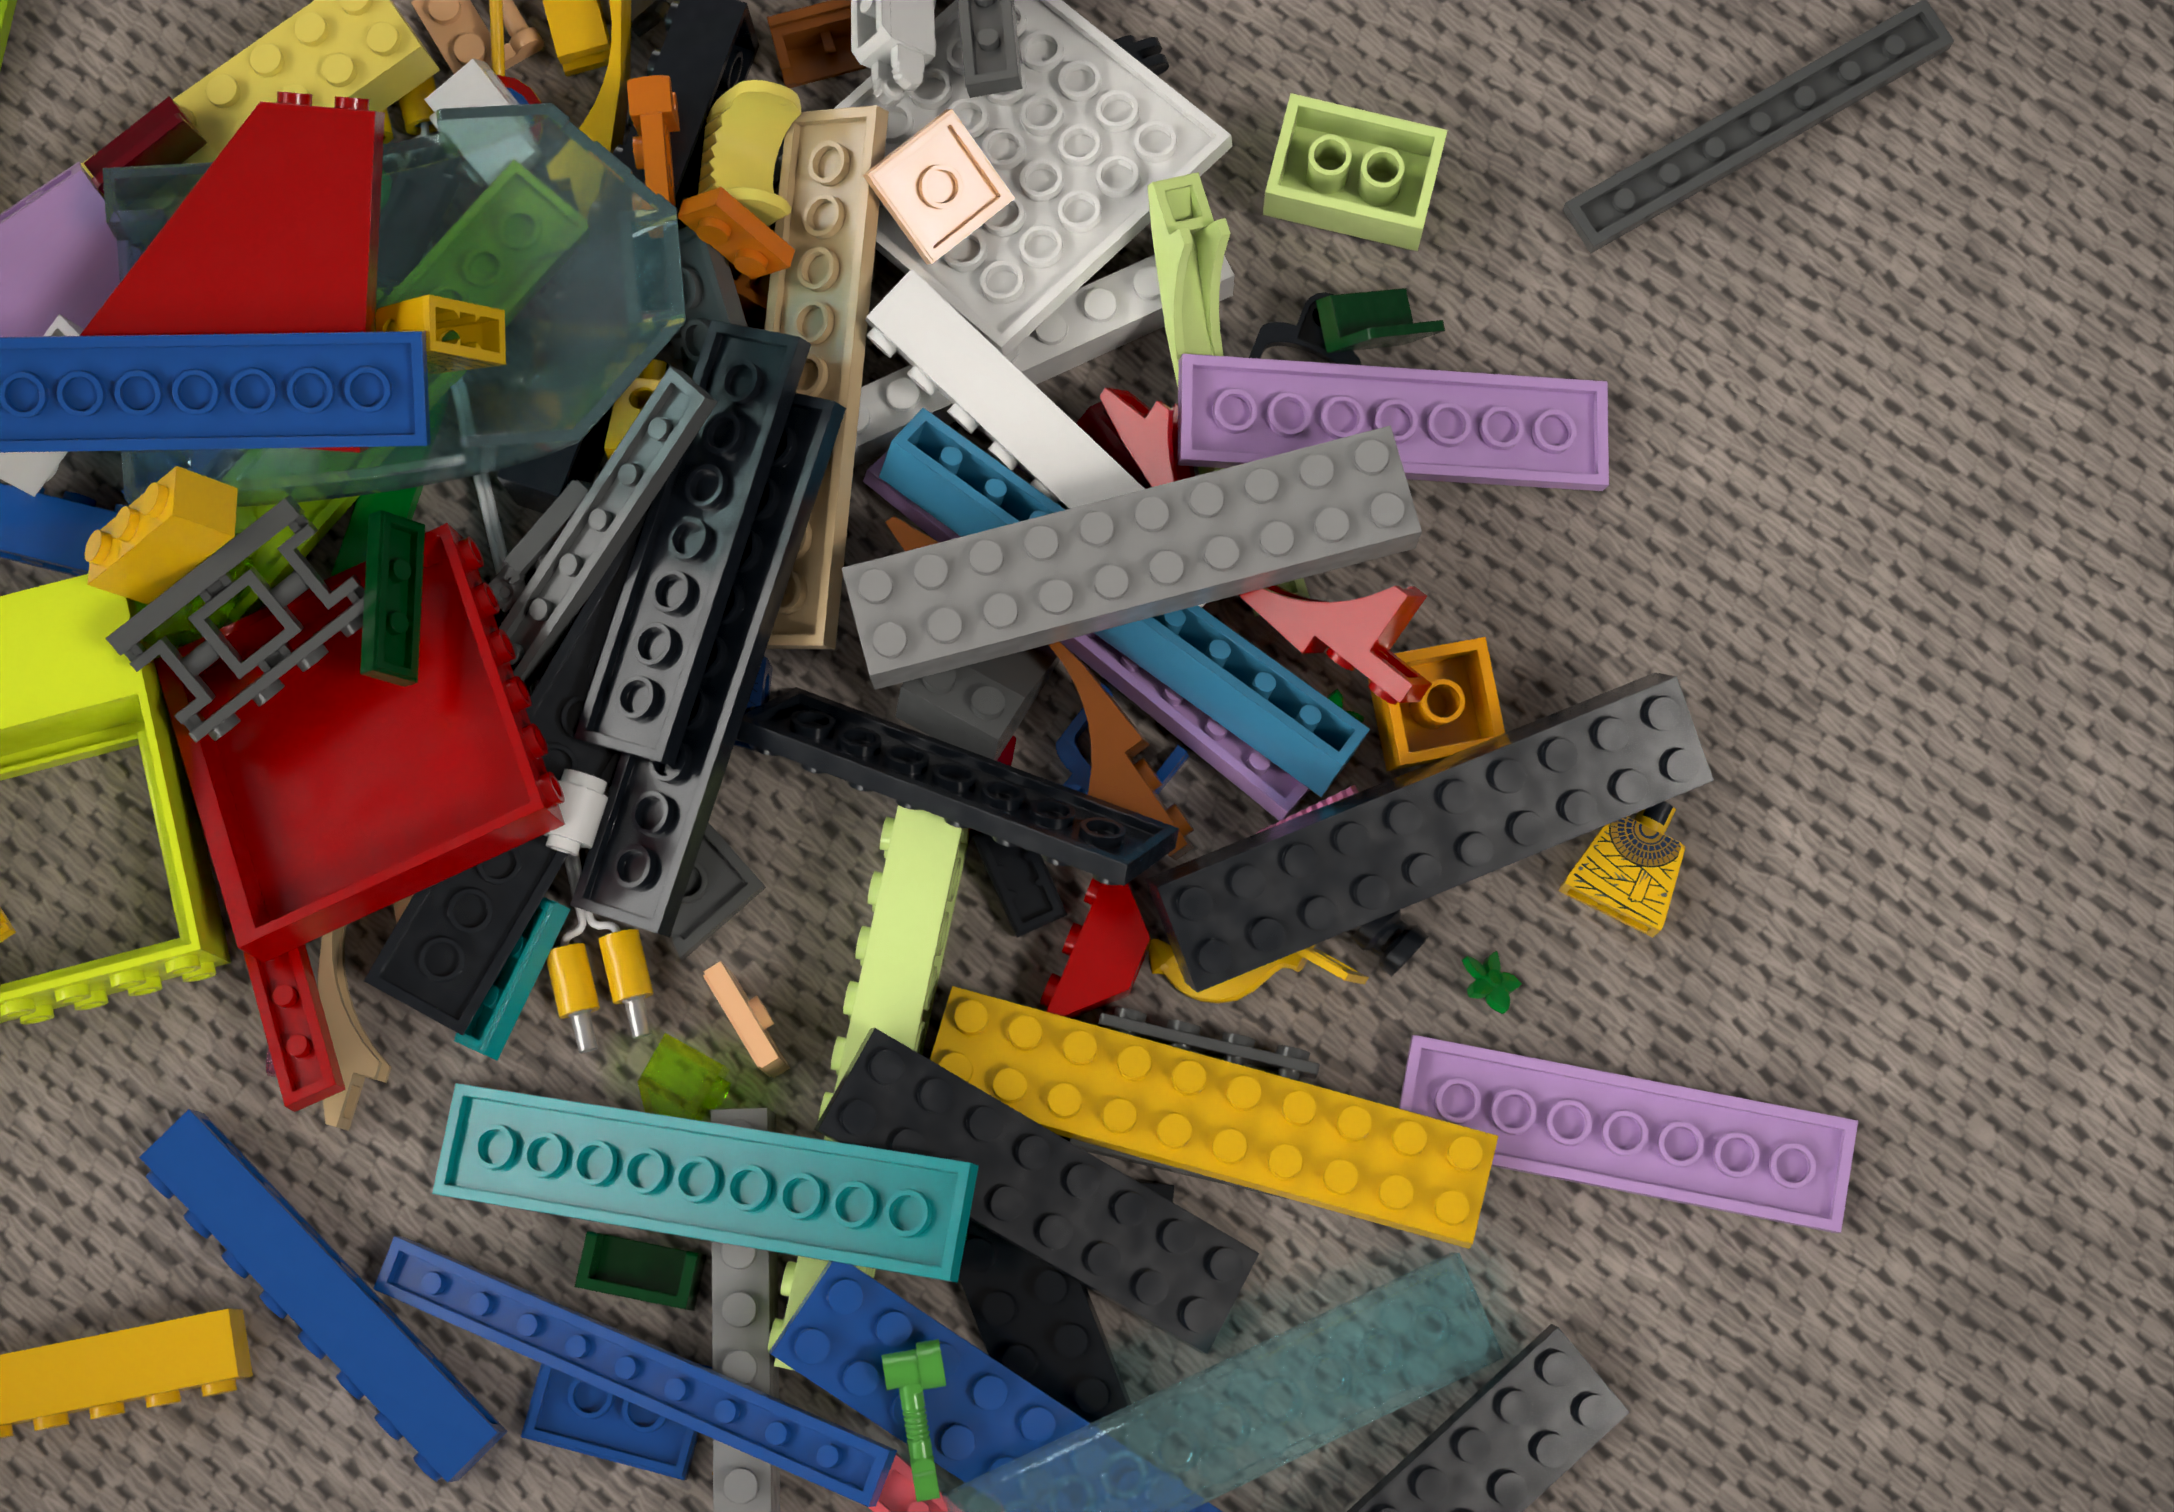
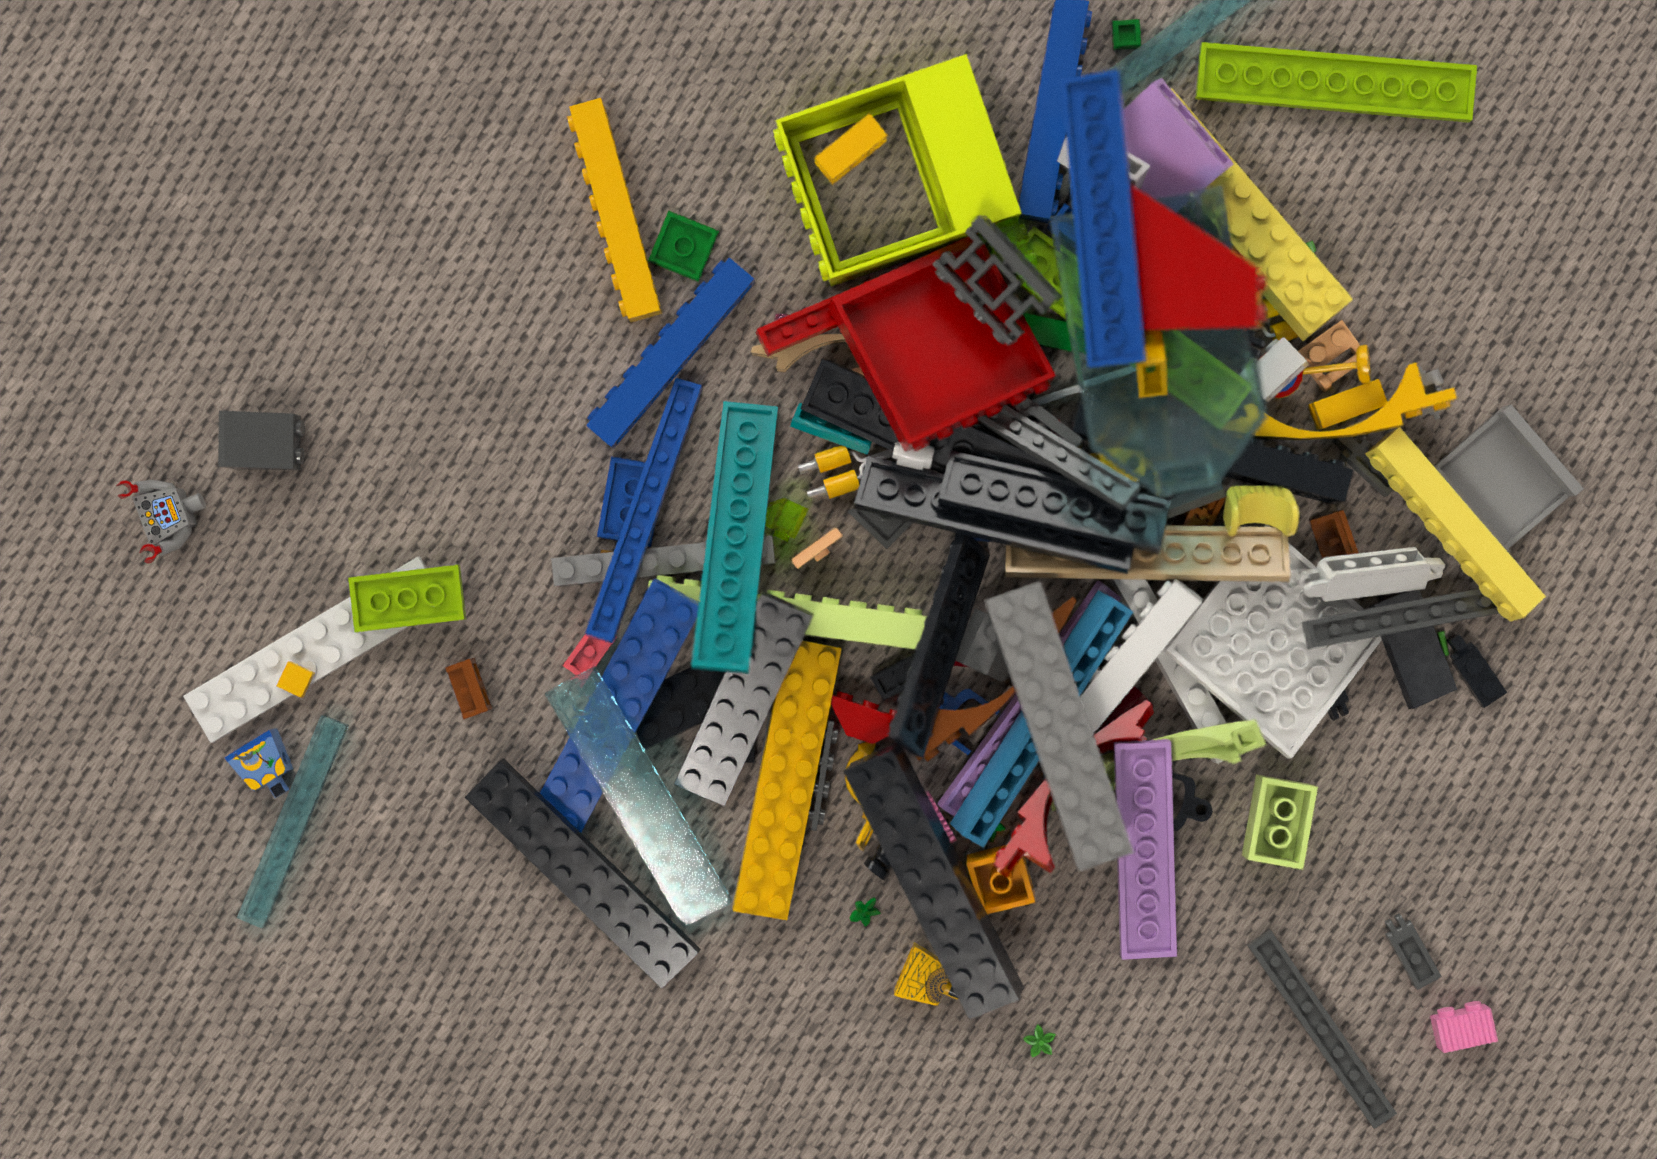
camera: 80 degrees right, 10 degrees up
(111, 1254) = (683, 246): none -> green tile
(157, 138) = (1242, 197): dark red panel -> none
(162, 535) = (1033, 237): yellow brick -> none
(392, 599) = (1012, 354): dark green tile -> none
(640, 1271) = (693, 507): dark green panel -> none
(654, 116) = (1278, 461): orange plate -> none
(736, 233) = (1216, 509): orange plate -> none
(912, 1373) = (648, 649): bright green brick -> none
(939, 186) = (1250, 611): light nougat plate -> none
(1371, 321) = (1198, 835): dark green panel -> none
(1639, 1133) = (795, 986): lavender plate -> none
(1766, 656) = (1039, 1041): none -> bright green plant

